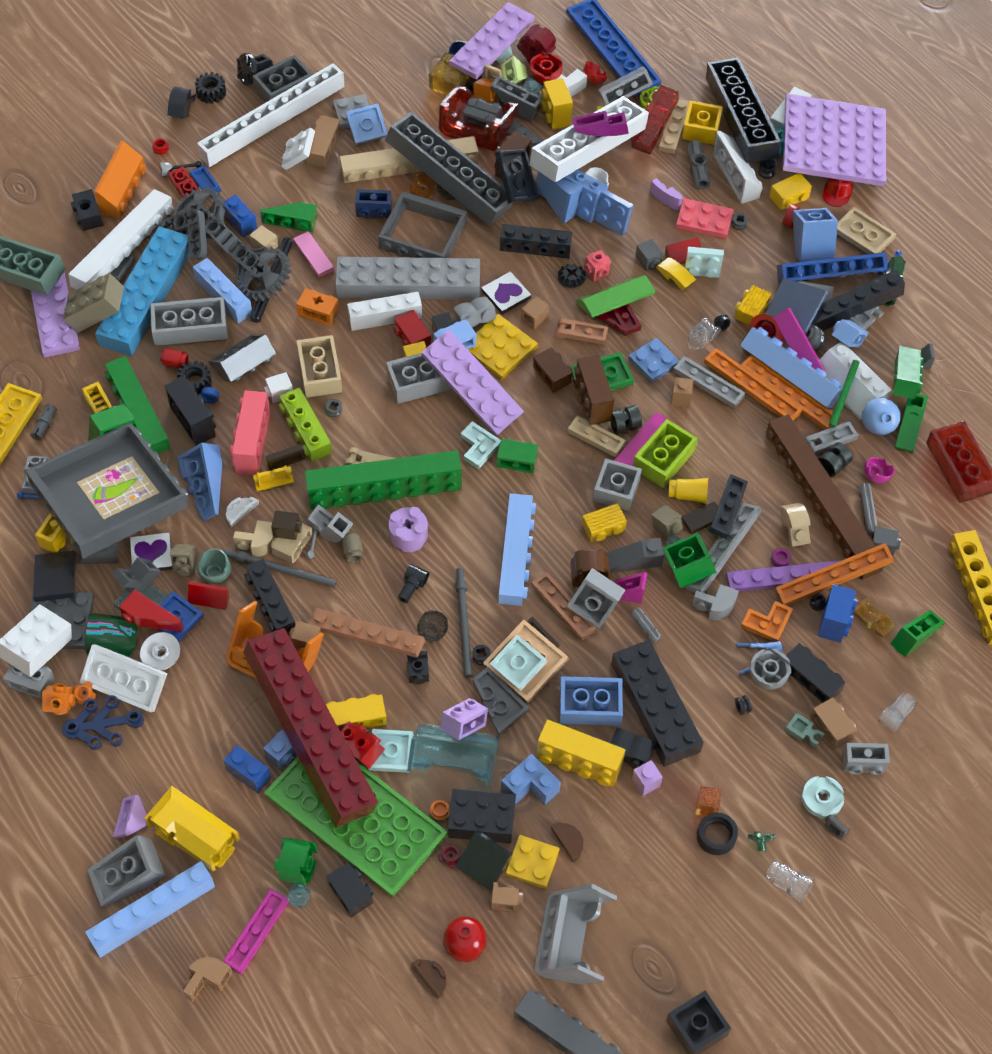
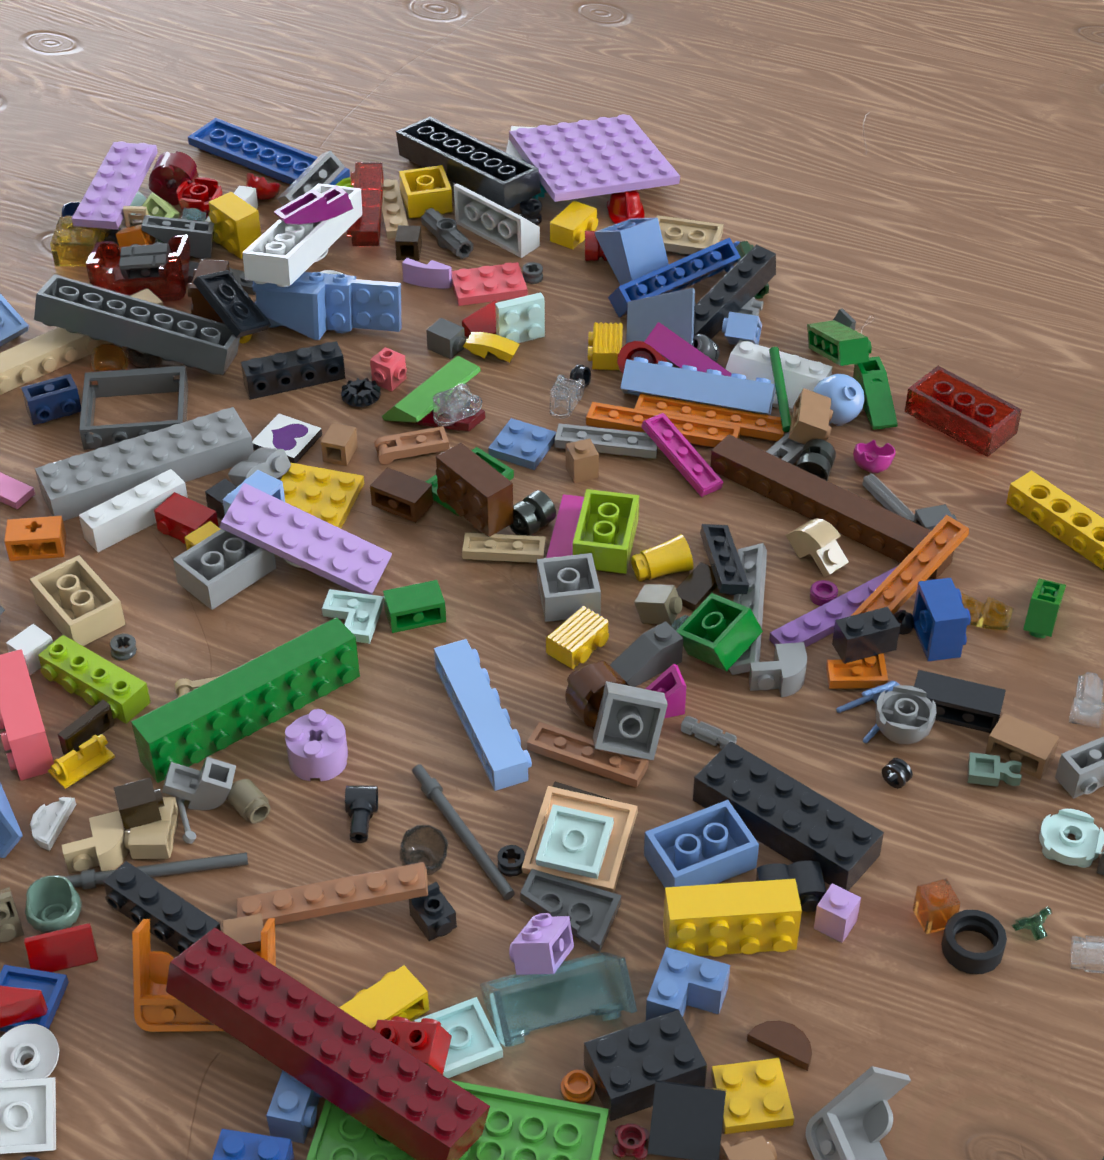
camera: 25 degrees left, 15 degrees down
(621, 314) = (453, 405): none -> clear piece
(668, 162) = (408, 242): none -> dark brown brick
(750, 414) = (682, 454): none -> dark pink tile
(780, 604) = (865, 635): none -> black brick
(849, 425) = (810, 417): none -> medium nougat brick

